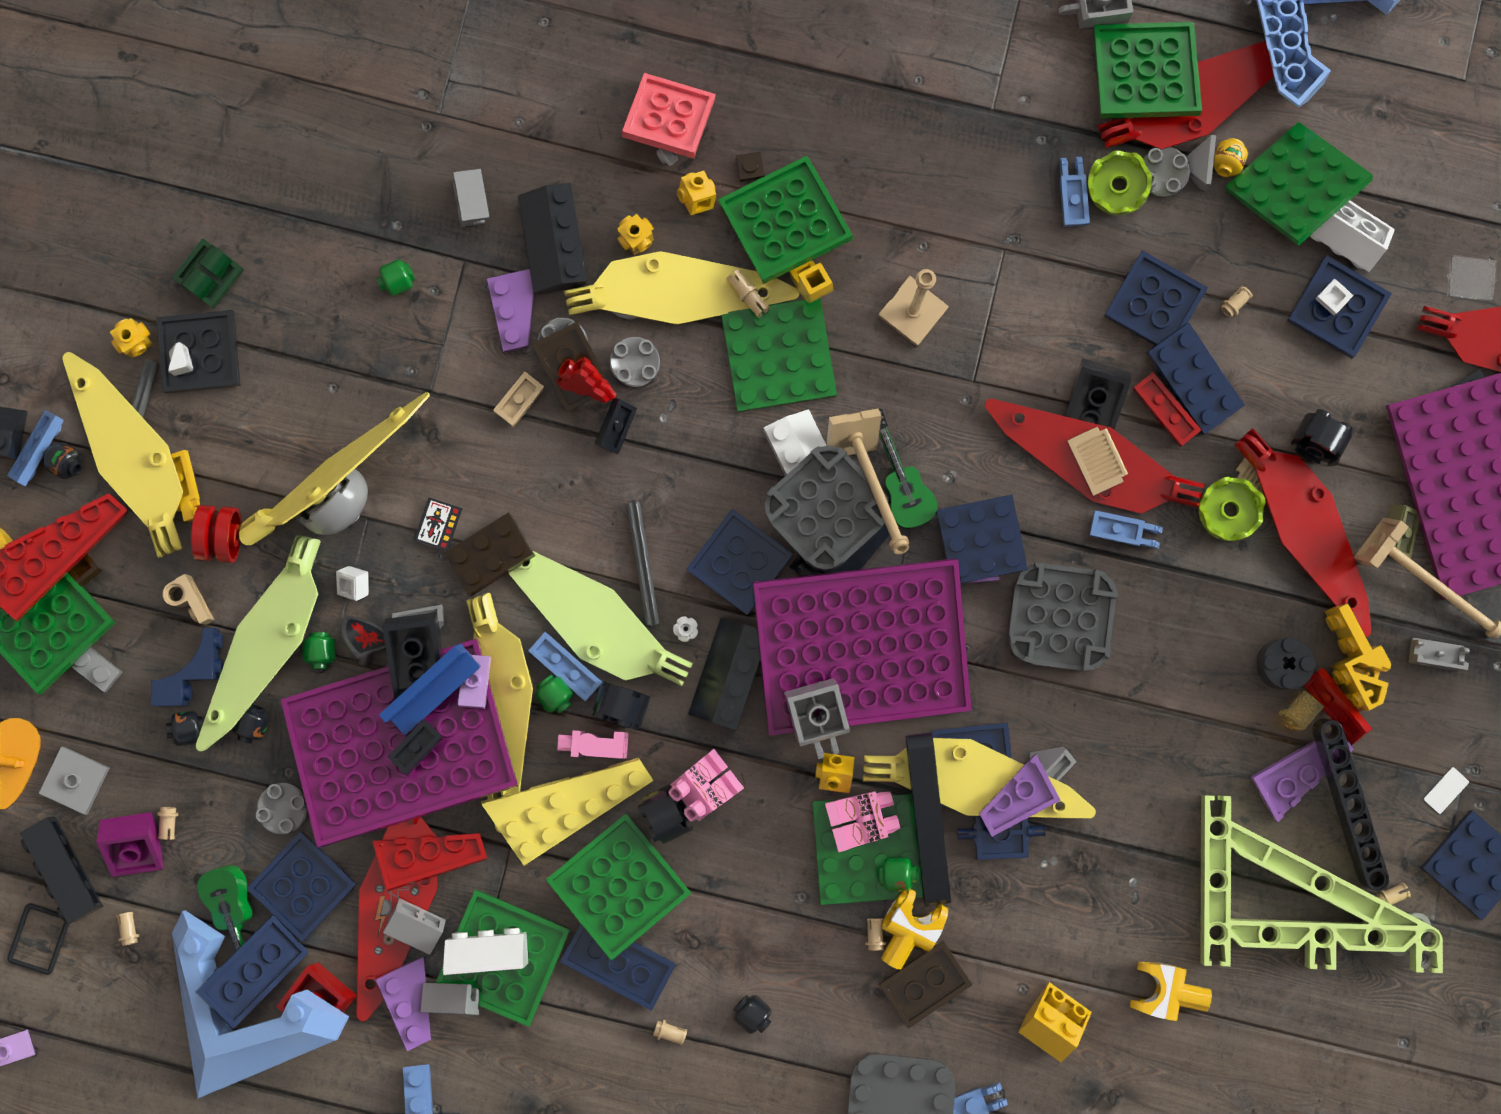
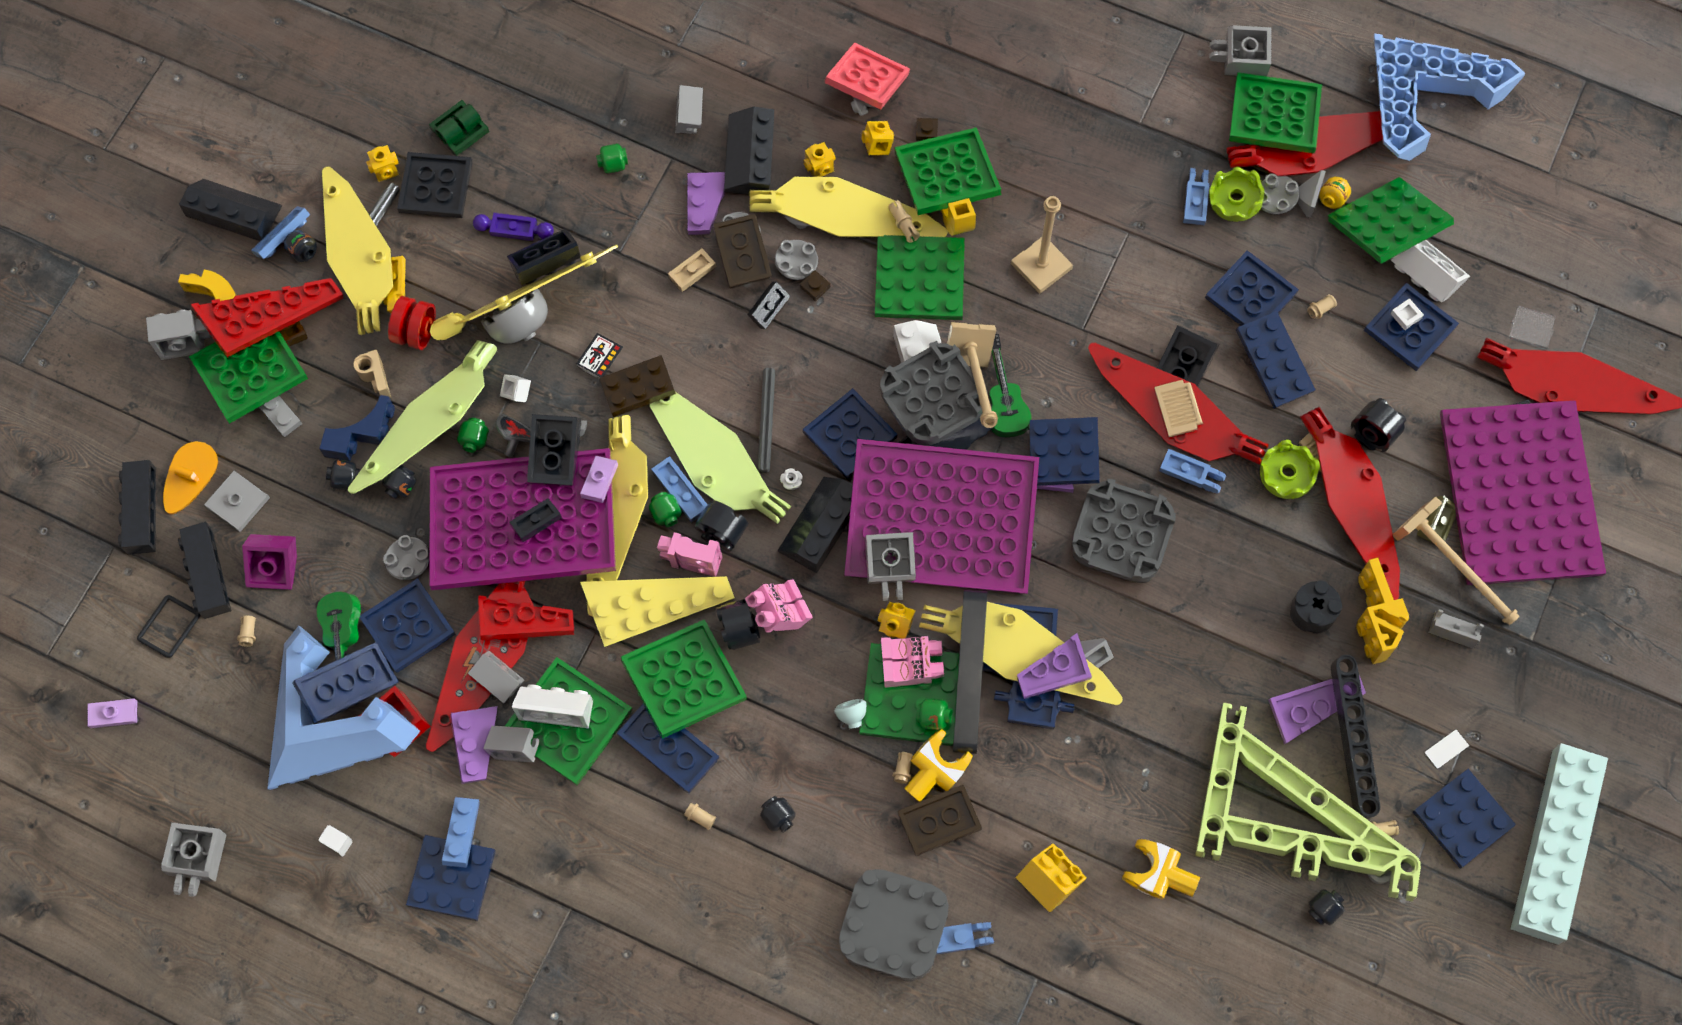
camera: 15 degrees right, 15 degrees down
(167, 822) = (305, 550): tan pin -> none
(180, 360) = (418, 184): white slope -> none
(302, 386) = (512, 226): none -> dark purple plate
(346, 420) = (544, 257): none -> black slope
(431, 689) = (560, 473): blue panel -> none
(584, 379) = (750, 259): red rock -> none
(662, 388) = (815, 285): none -> dark brown plate
(807, 884) = (851, 712): none -> light aqua brick
(1166, 409) = (1246, 380): red plate -> none
(1300, 710) = (1323, 650): clear yellow brick -> none
(1338, 706) = (1353, 644): red plate -> none
(1347, 994) = (1326, 907): none -> black head

